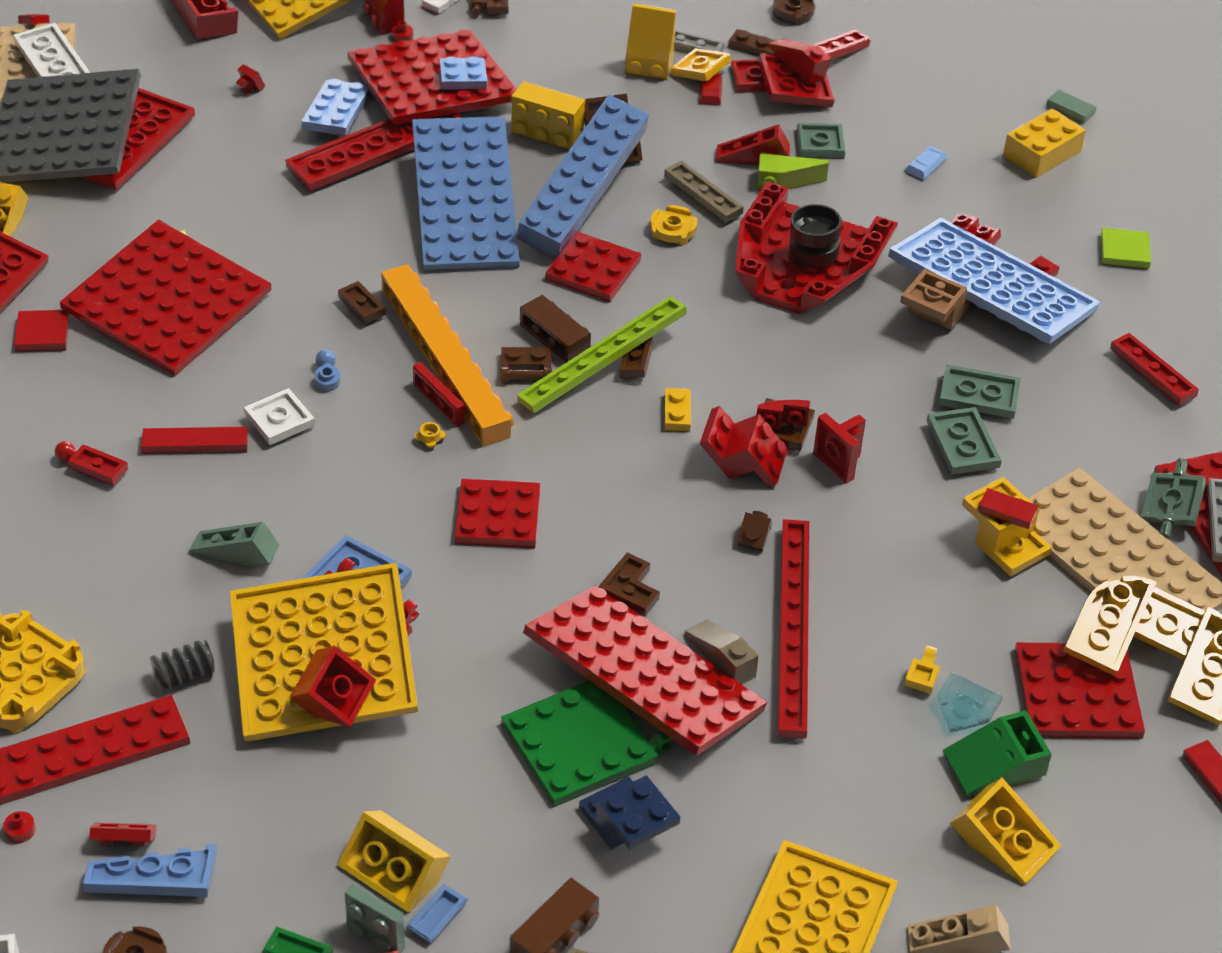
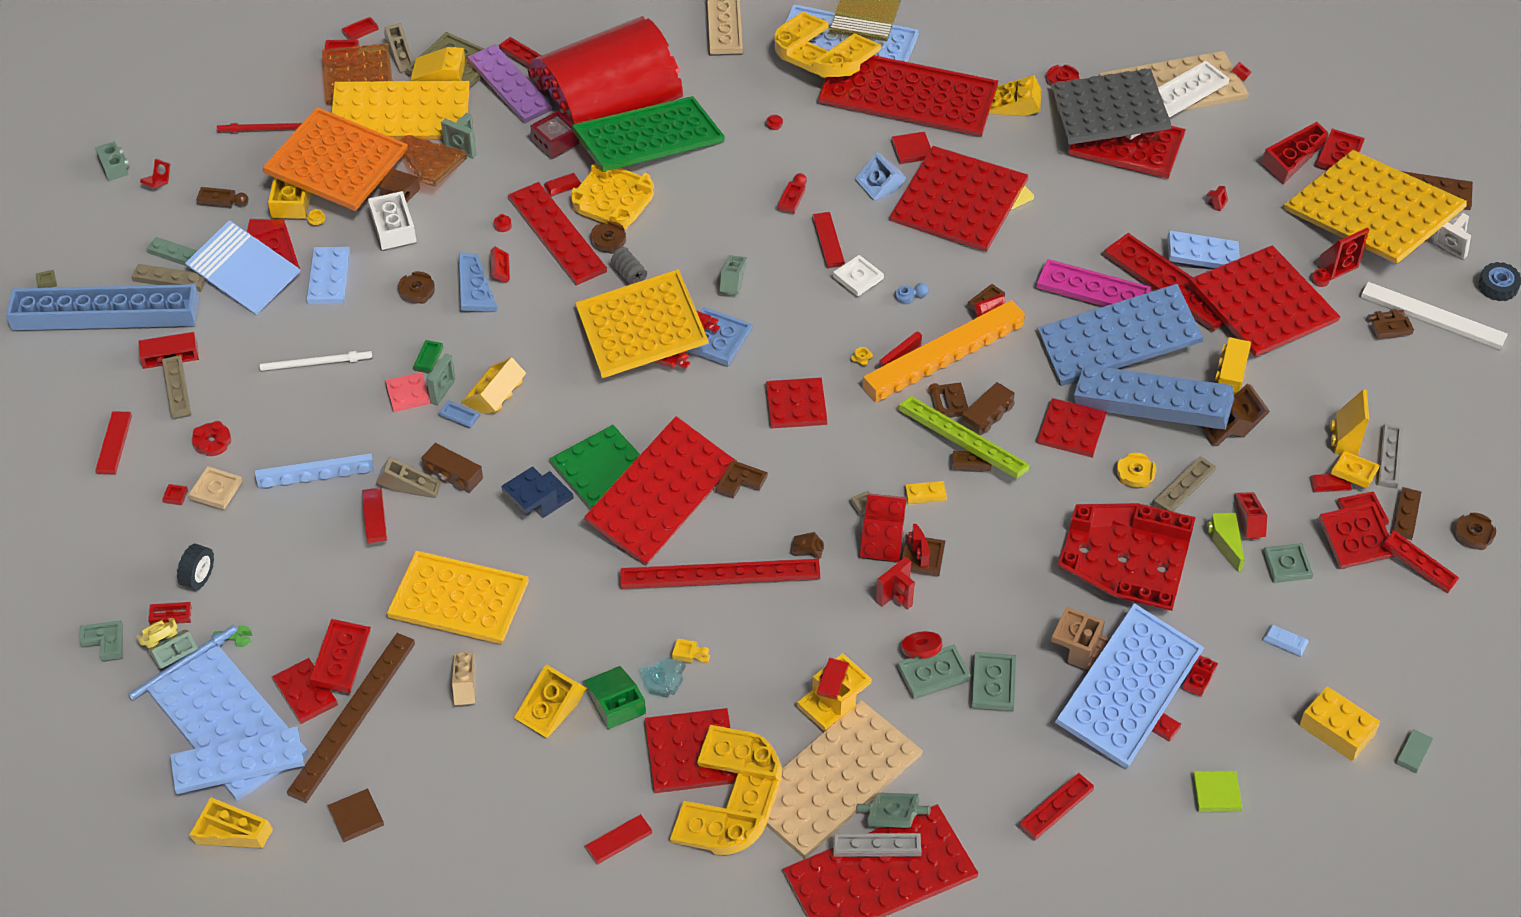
camera: 85 degrees right, 5 degrees up
(96, 366) = (880, 177): none -> light blue slope
(108, 699) = (611, 244): none -> reddish brown plate
(333, 687) = (604, 328): red slope -> none
(365, 208) = (1087, 284): none -> dark pink plate
(381, 296) = (989, 304): none -> red tile
(463, 73) = (1260, 311): light blue plate -> none
(690, 466) = (859, 502): none -> dark tan plate
(724, 650) = (687, 534): dark tan slope -> none
(804, 59) = (1378, 529): red slope -> none
(815, 235) = (1127, 548): pearl dark grey wheel -> none
(922, 431) = (922, 644): none -> red tile

